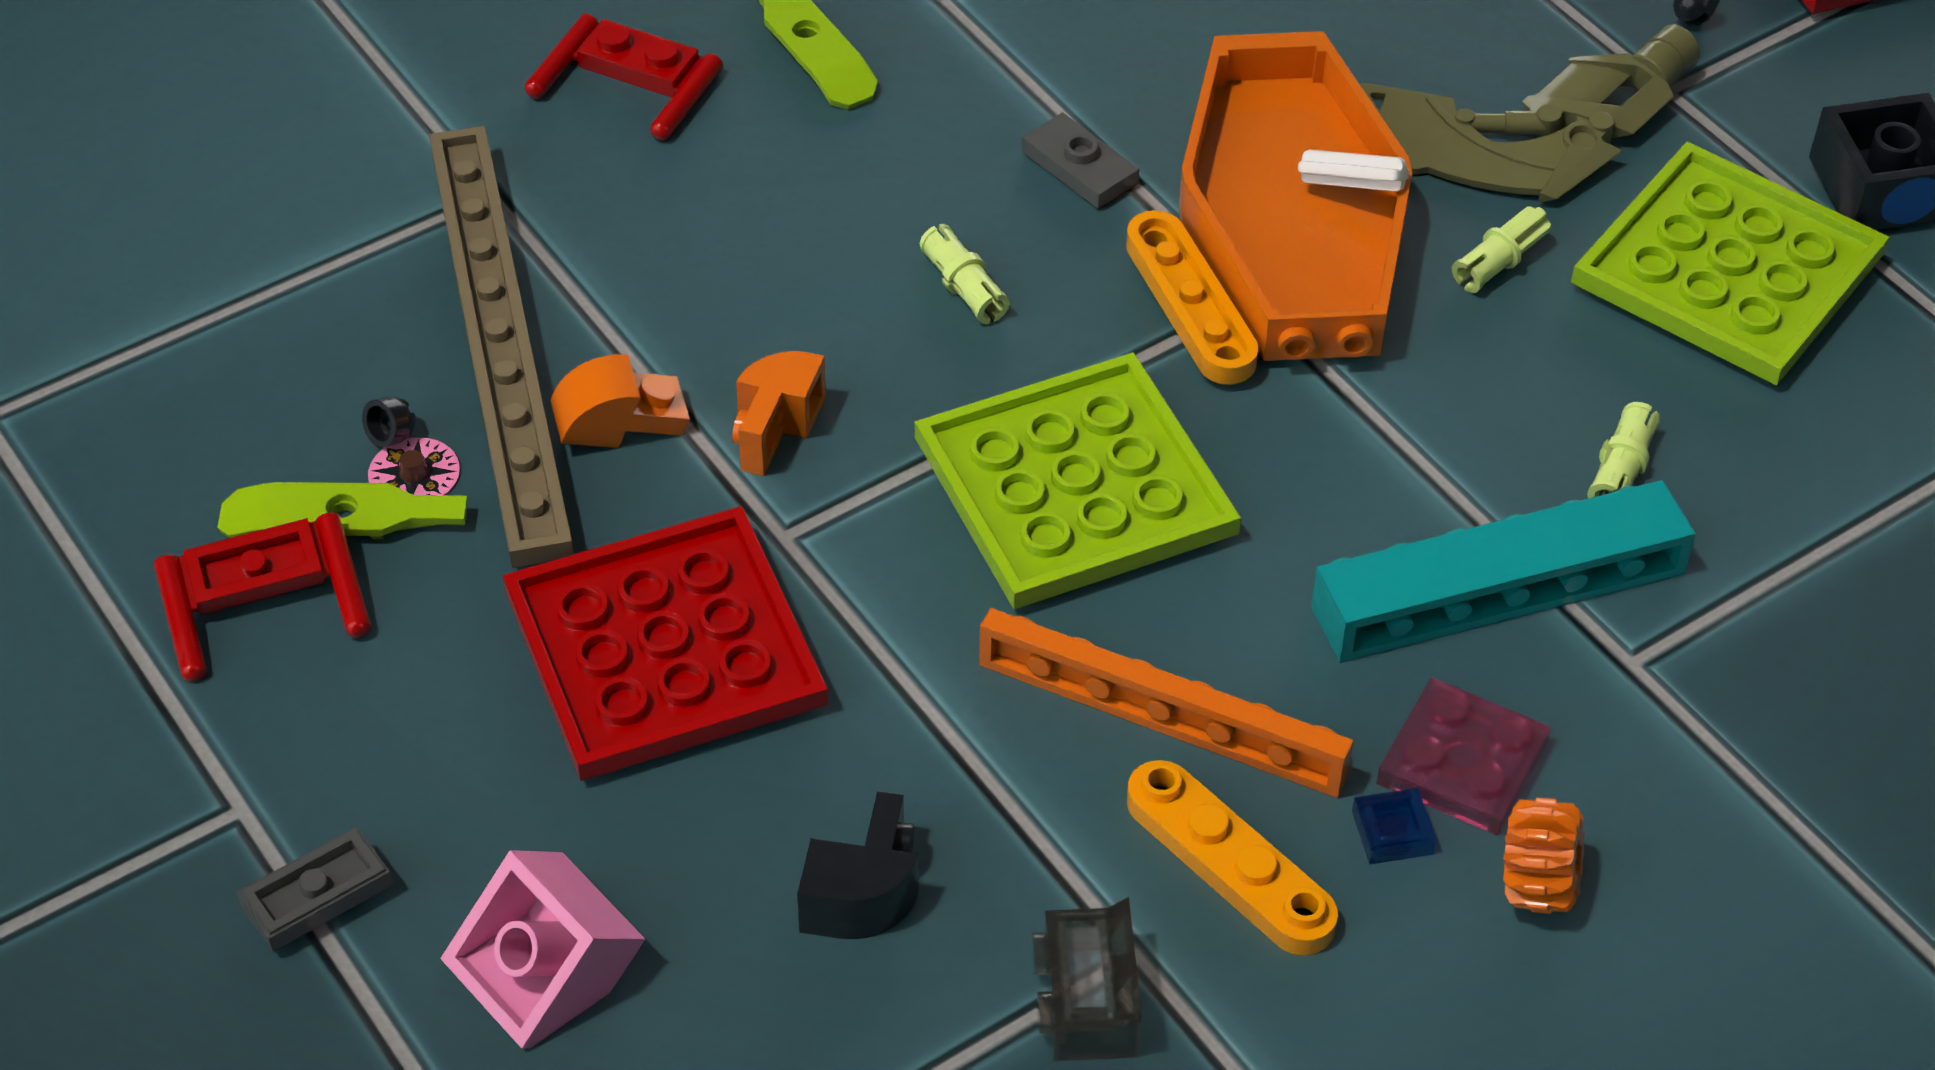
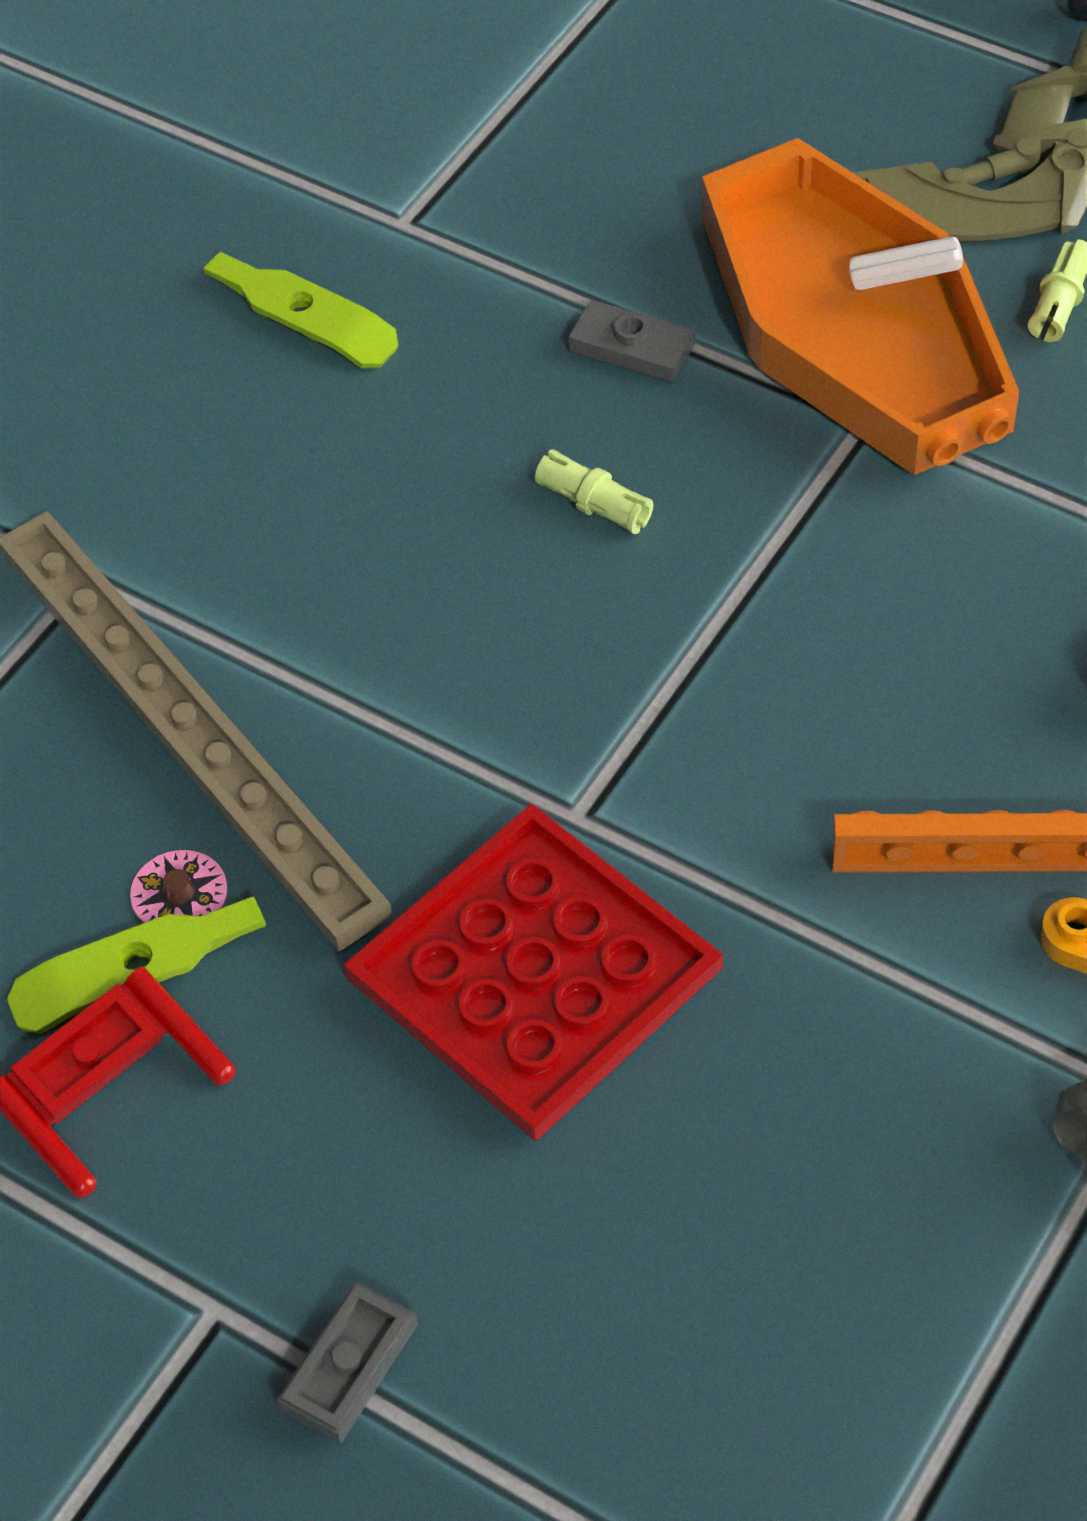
camera: 20 degrees left, 5 degrees up
(380, 412) = (119, 861): black hinge -> none
(540, 945) = (606, 1327): bright pink slope -> none
(607, 399) = (342, 743): orange brick -> none
(633, 59) = (148, 389): red plate -> none
(776, 399) = (496, 684): orange brick -> none
(859, 888) = (870, 1137): black brick -> none
(1075, 479) = (818, 656): lime plate -> none
(1192, 297) = (817, 438): light orange plate -> none

